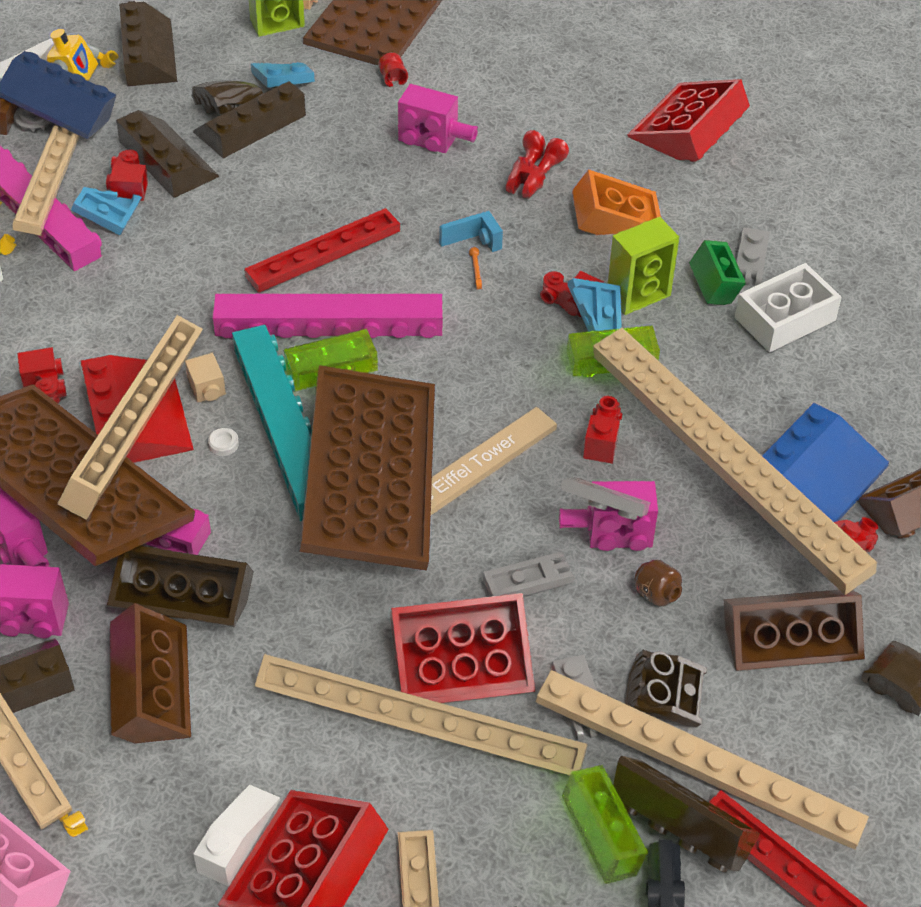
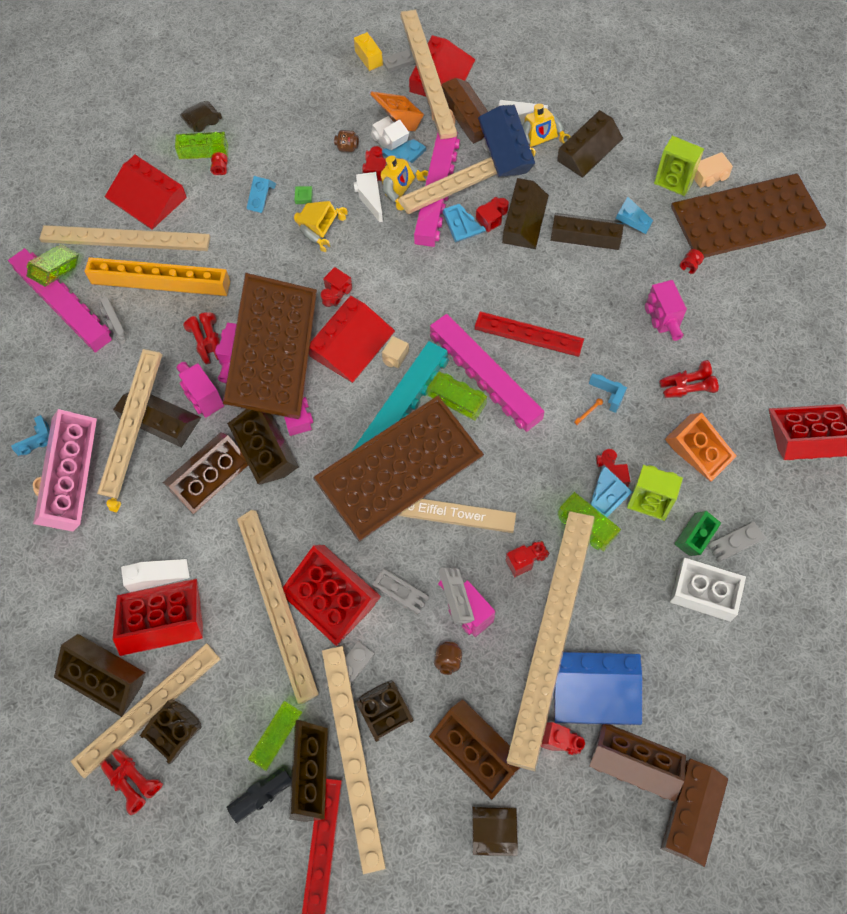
camera: 55 degrees right, 15 degrees up
(129, 419) = (325, 344): tan brick -> none
(223, 441) = (367, 391): white tile -> none
(224, 94) = (587, 206): dark brown slope -> none

